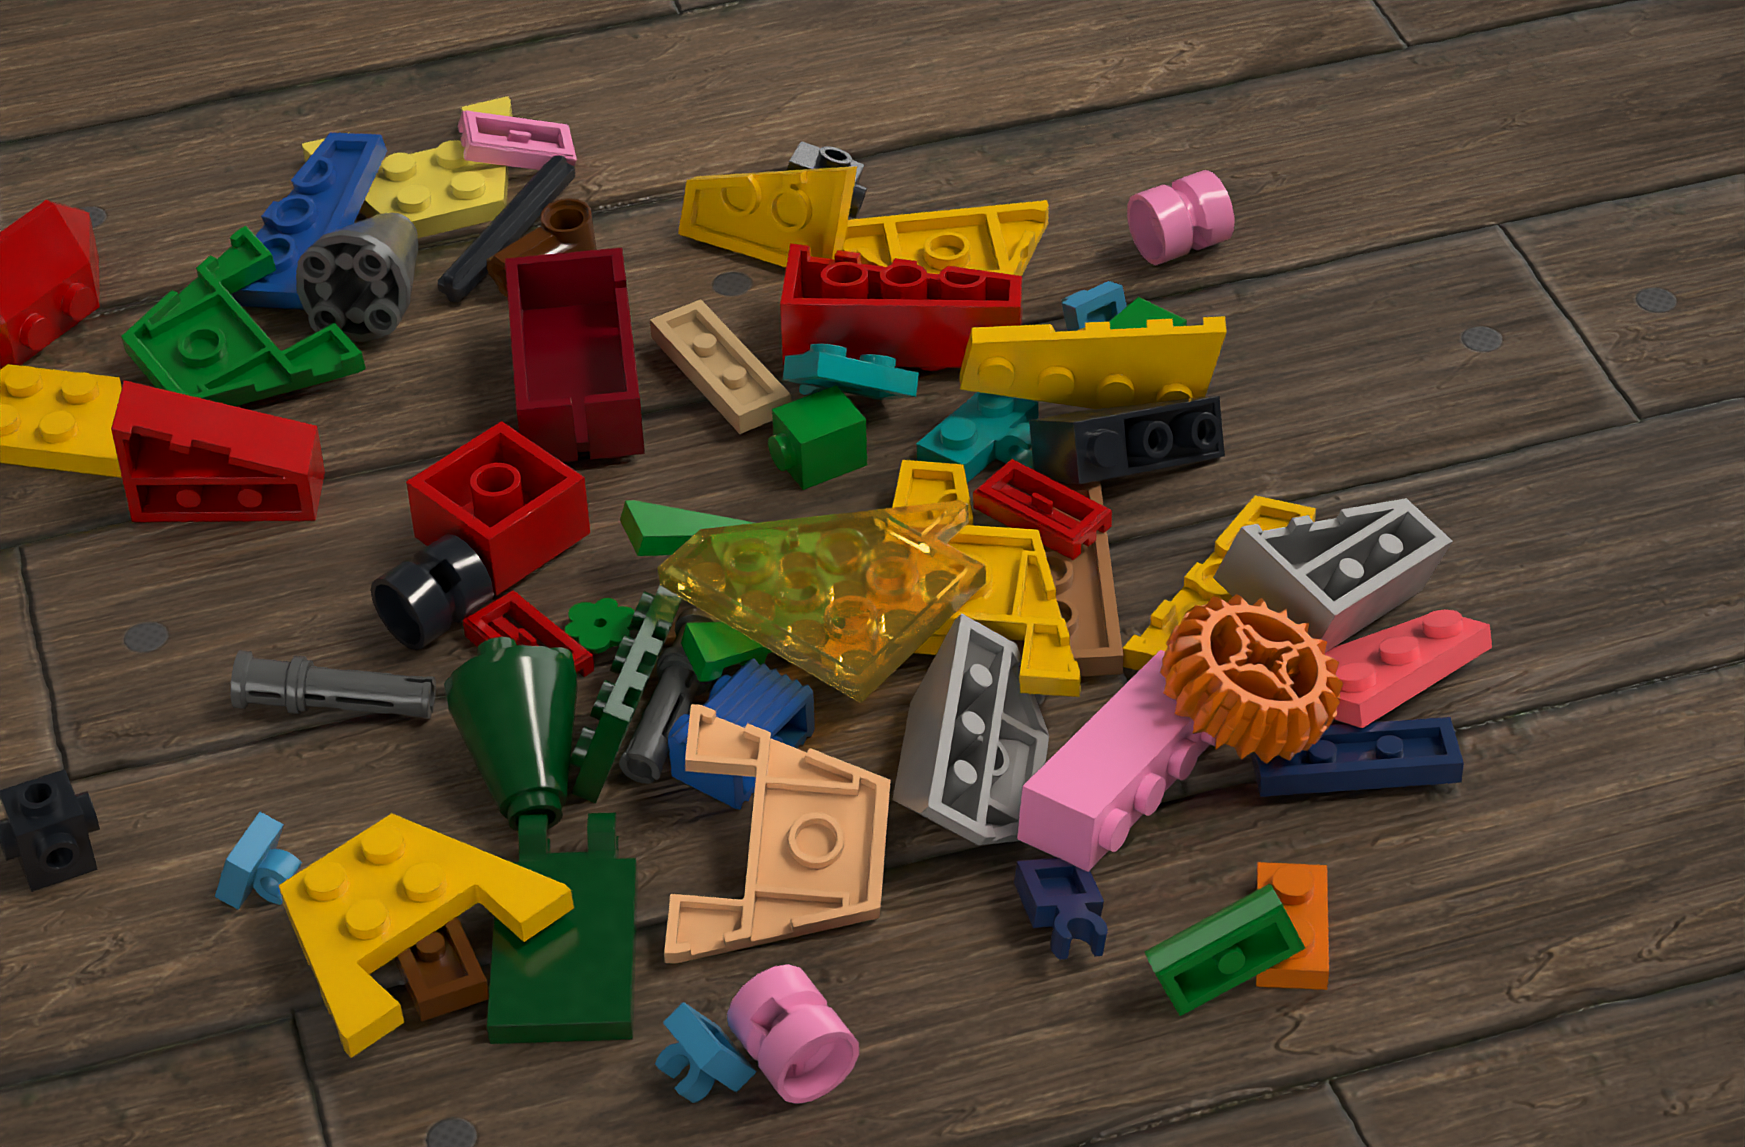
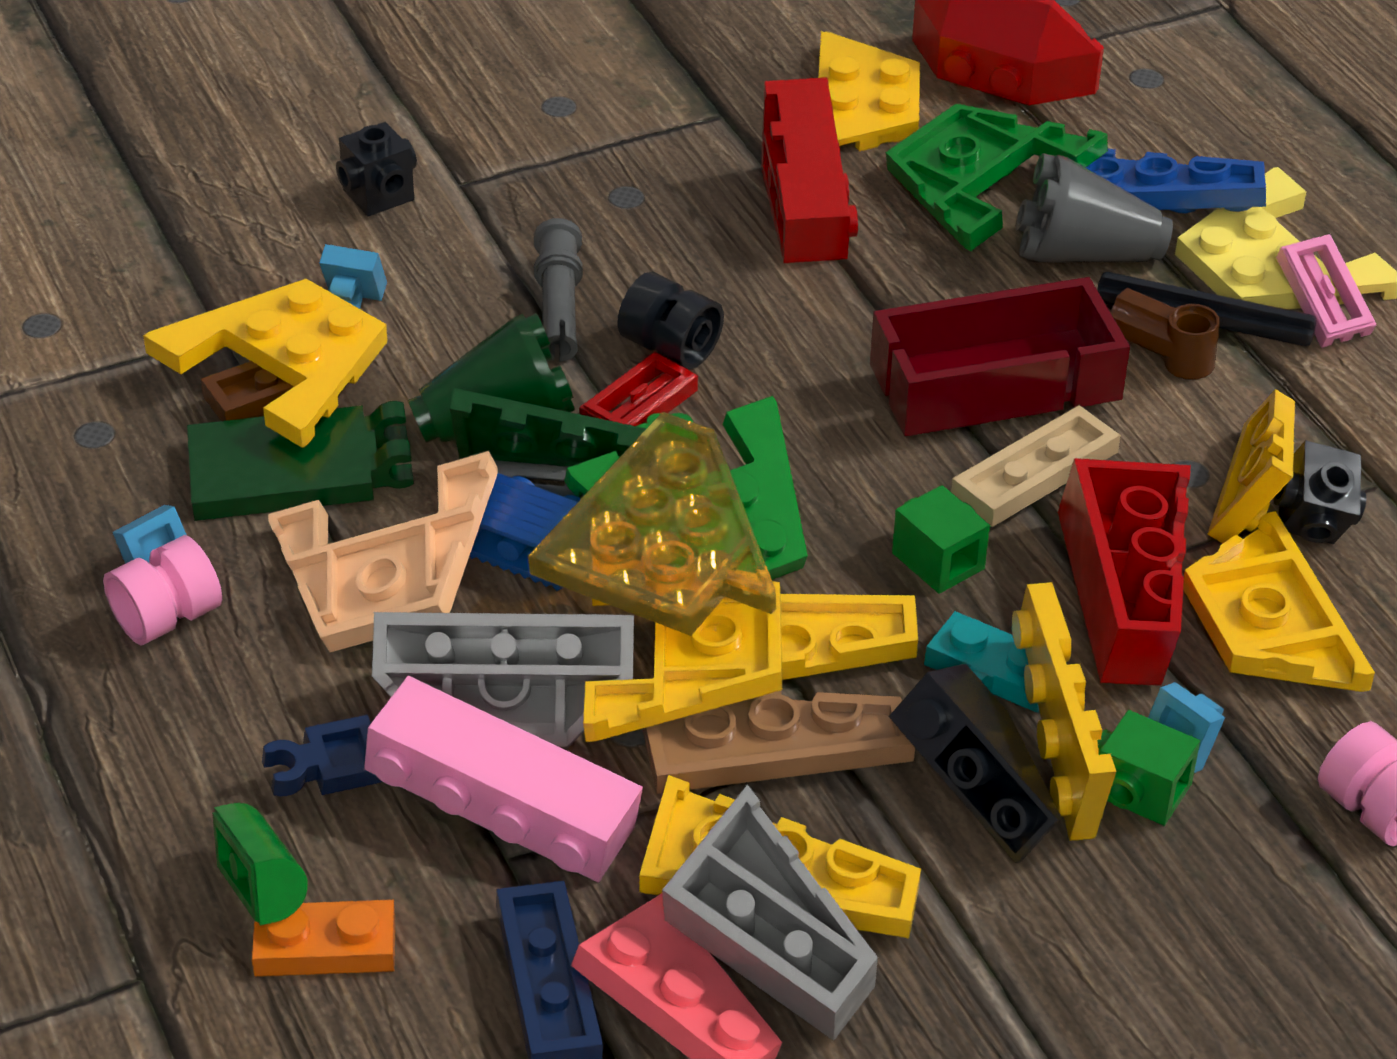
camera: 80 degrees right, 0 degrees up
(503, 501) = (777, 338): red brick -> none
(869, 377) = (1012, 536): teal plate -> none
(1037, 512) = (830, 726): red tile -> none
(1251, 678) = (617, 802): orange gear -> none

